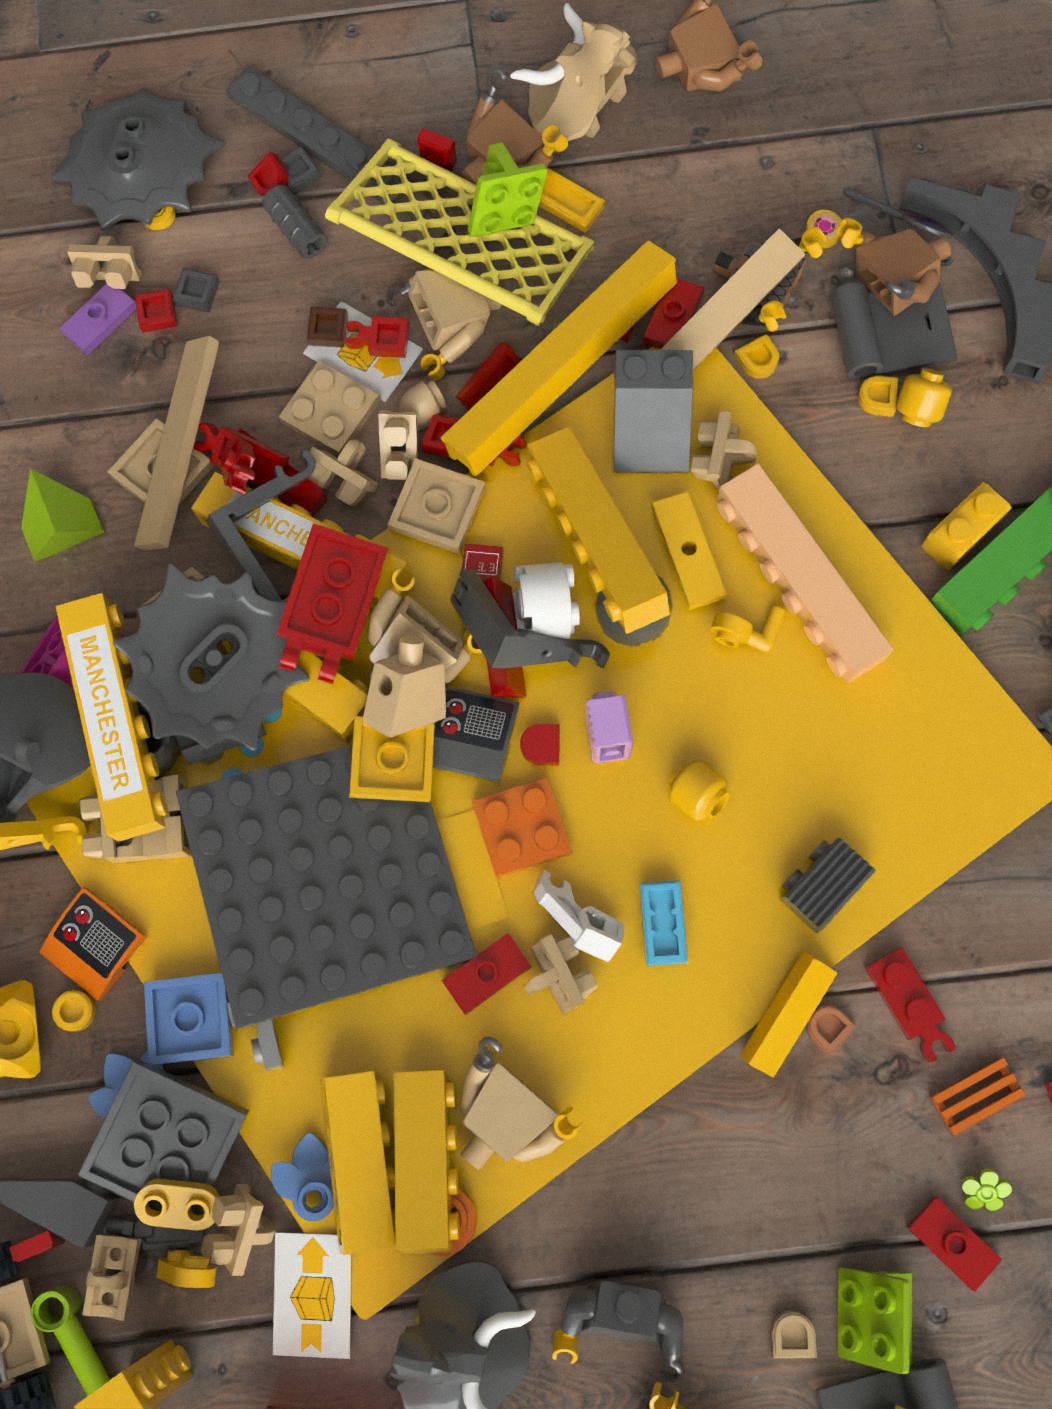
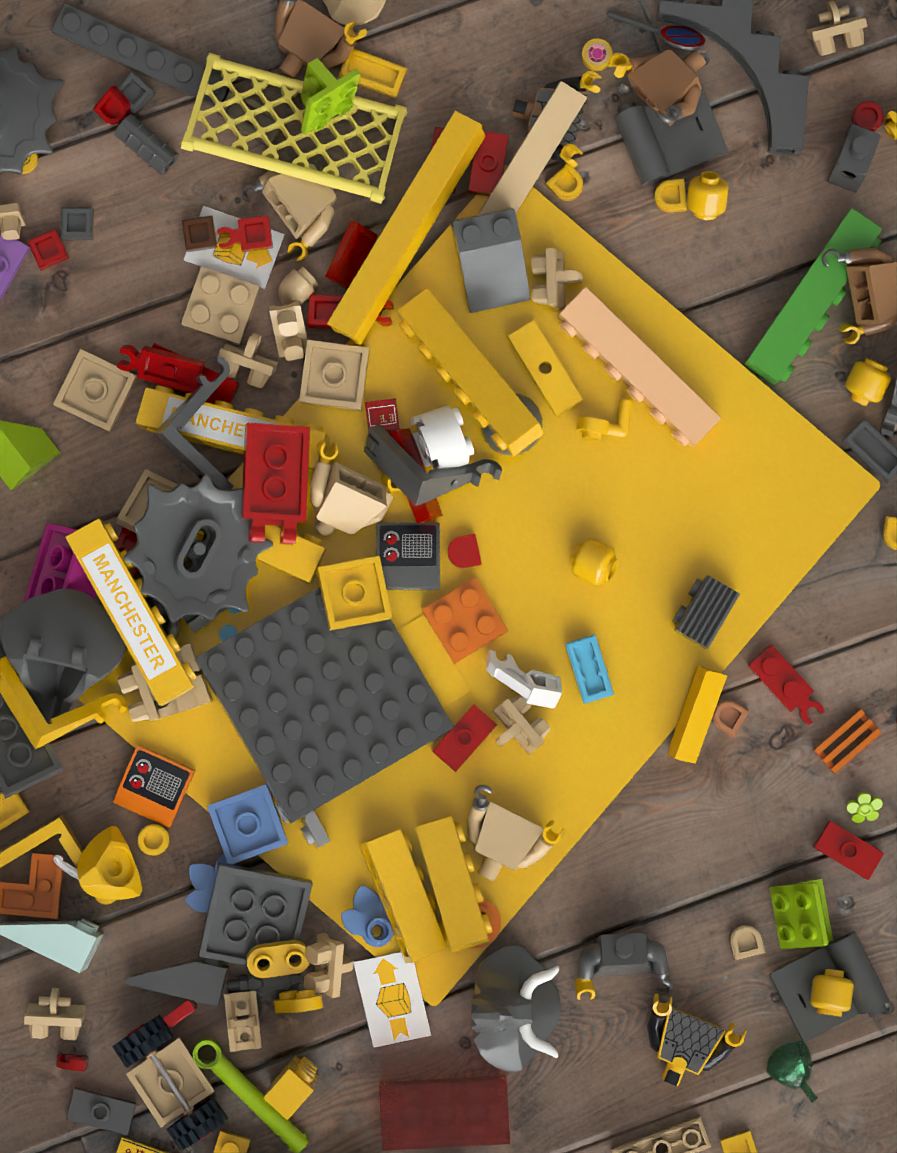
camera: 25 degrees left, 10 degrees up
(177, 444) = (107, 369): tan tile -> none
(236, 465) = (167, 381): red plate -> none
(406, 690) = (354, 540): tan torso -> none
(437, 149) = (252, 52): red tile -> none
(608, 727) = (515, 529): lavender brick -> none
(966, 526) = (760, 298): yellow brick -> none

